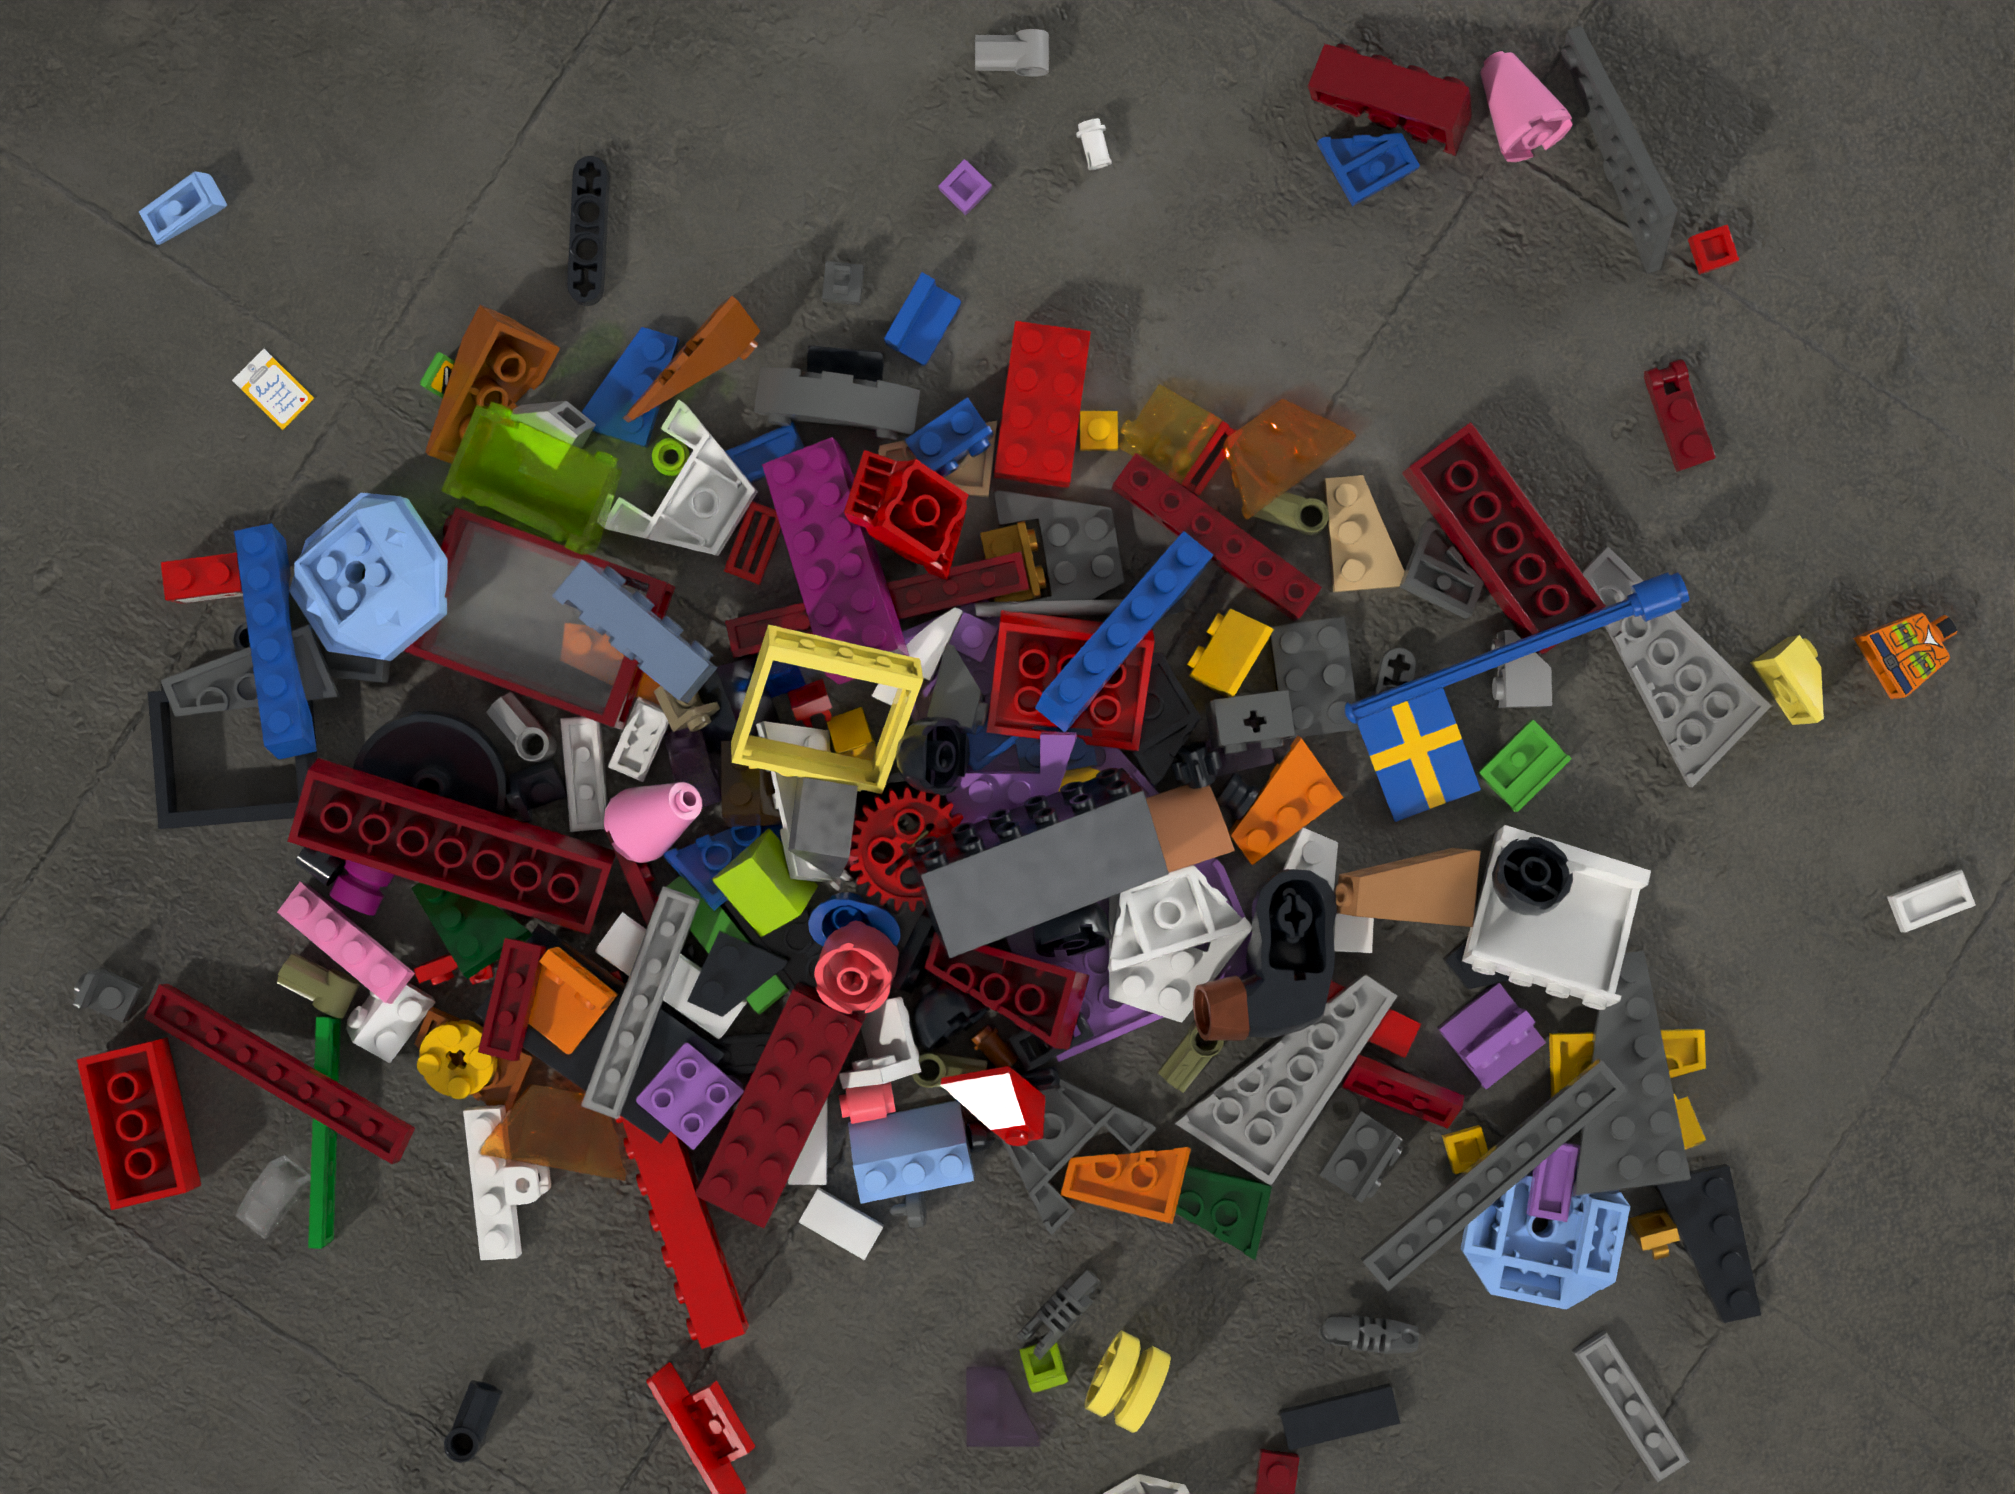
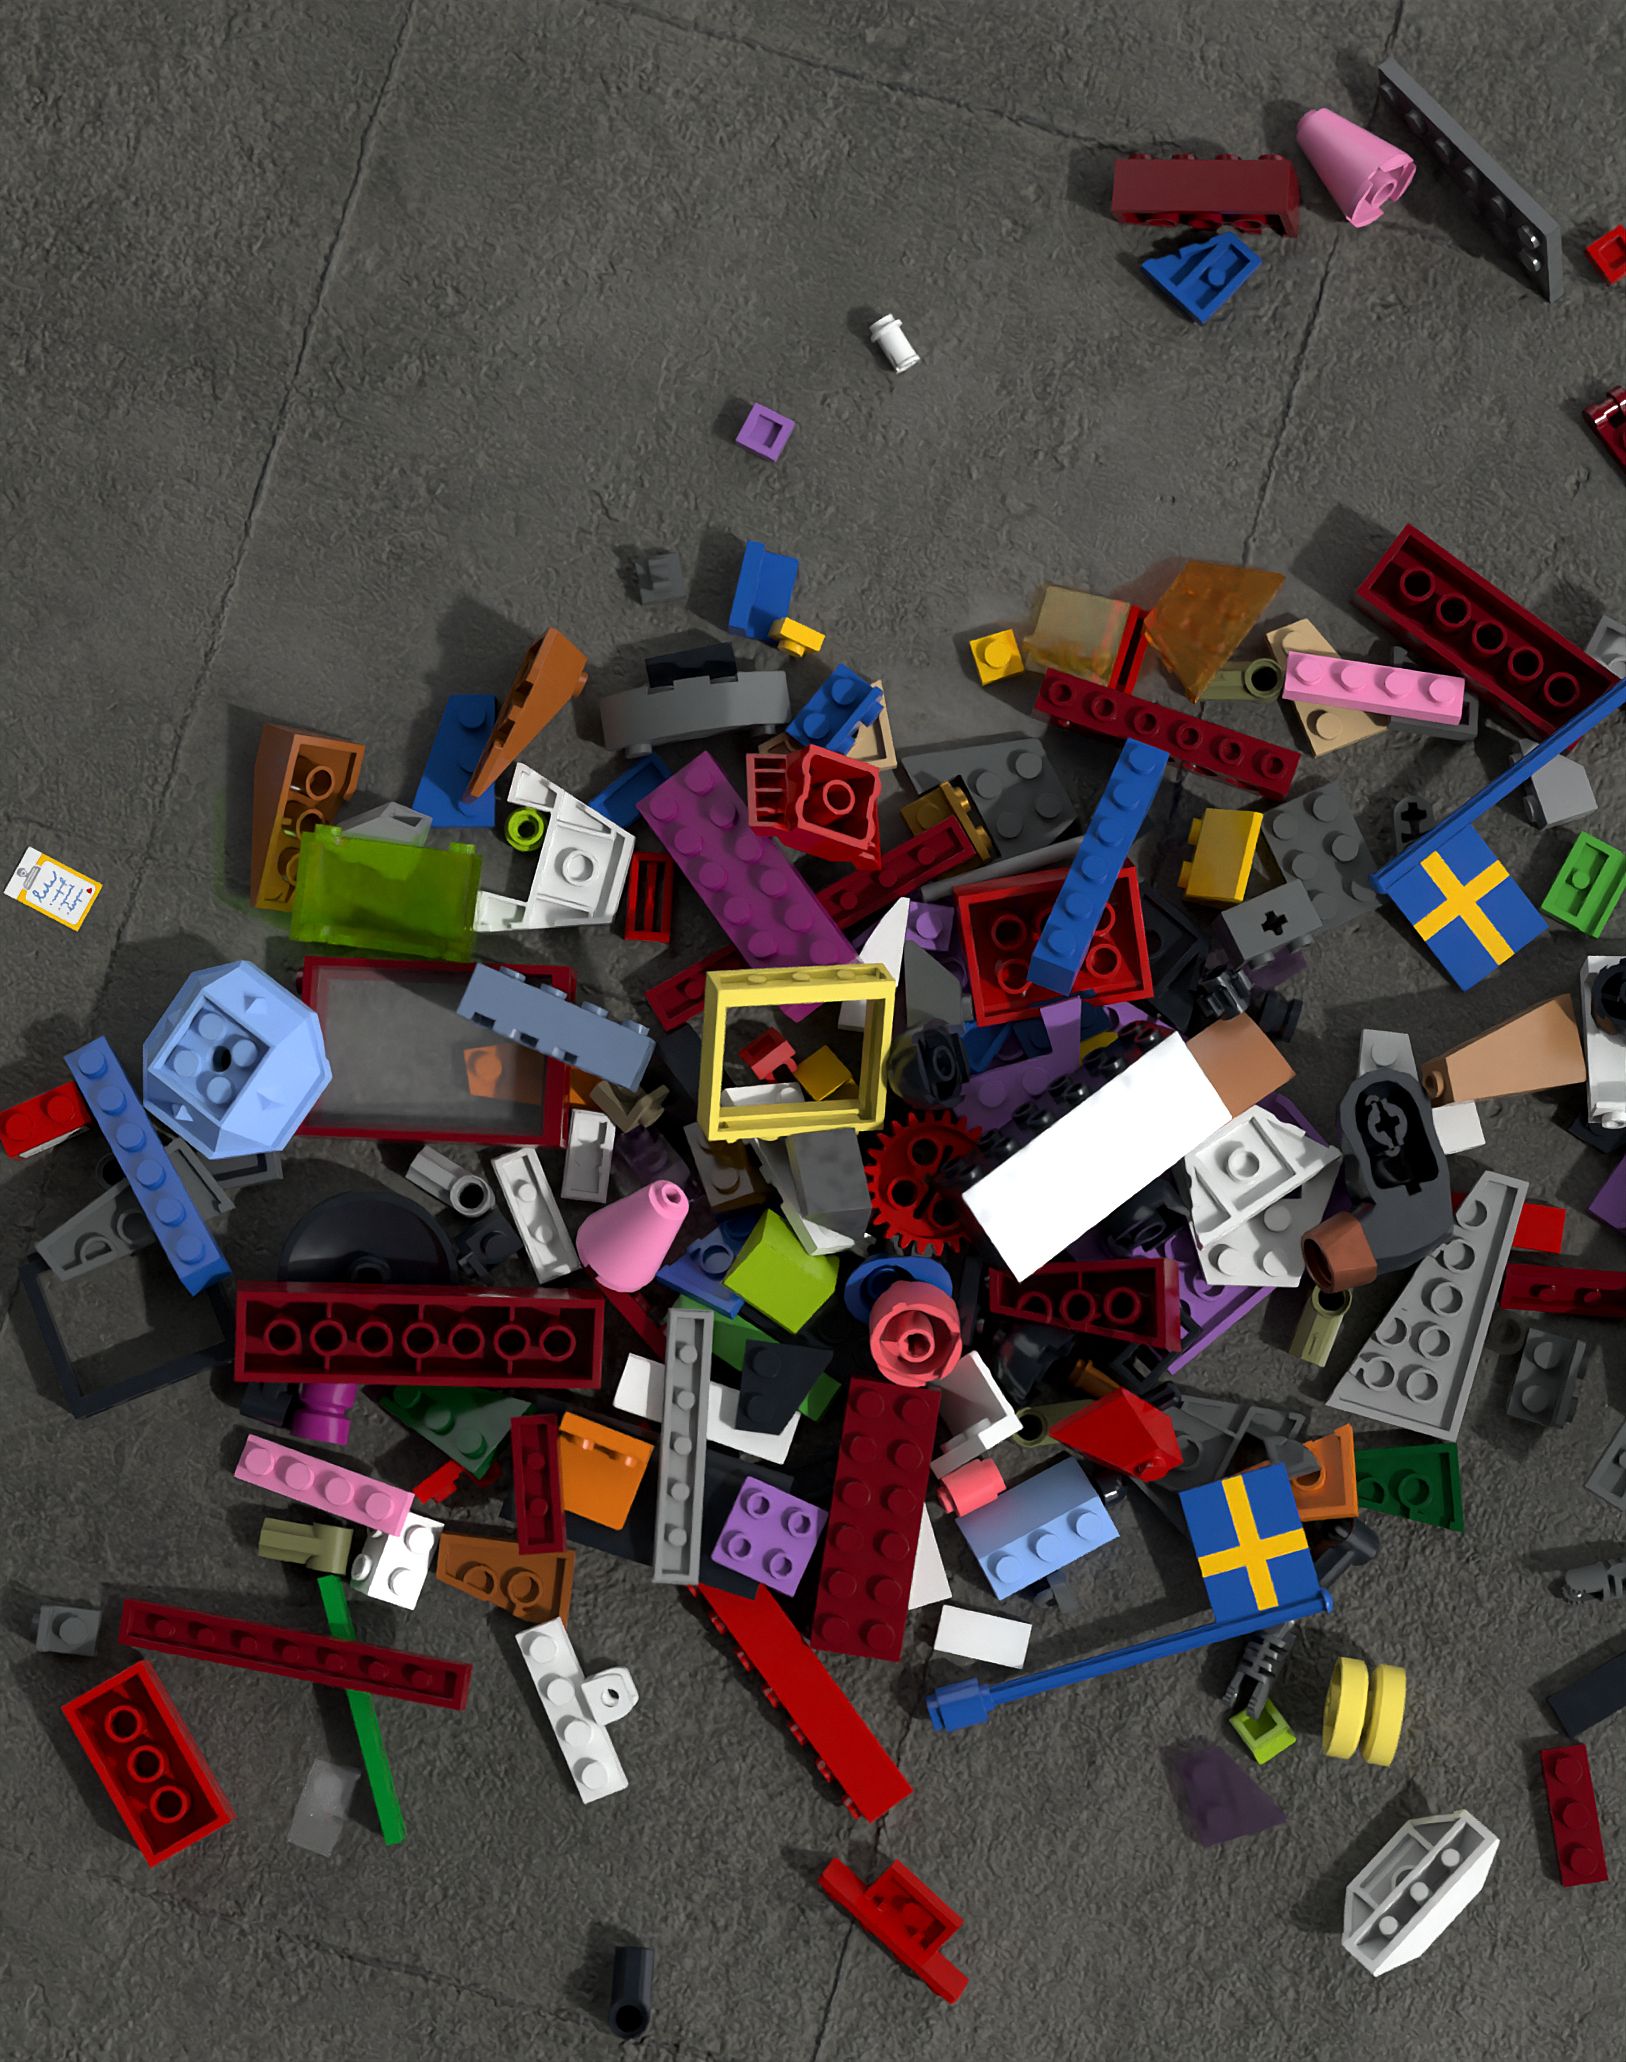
camera: 15 degrees left, 5 degrees down
(436, 1063) = (467, 1589): yellow plate -> none
(438, 374) = (239, 816): slope -> none
(556, 1132) = (631, 1627): clear orange wing -> none
(583, 231) = (355, 607): black beam -> none
(783, 678) = (736, 1034): clear blue tile -> none
(937, 365) = (795, 638): none -> yellow plate
(1024, 52) = (784, 267): light grey piece -> none
(1042, 404) = (926, 646): red brick -> none
(1073, 1241) = (1253, 1574): none -> flag
(1131, 1160) = (1296, 1457): none -> dark grey tile
(1149, 1242) = (1342, 1544): none -> black piece
(1287, 802) = (1337, 1007): orange wing -> none
(1399, 550) = (1373, 688): none -> bright pink plate

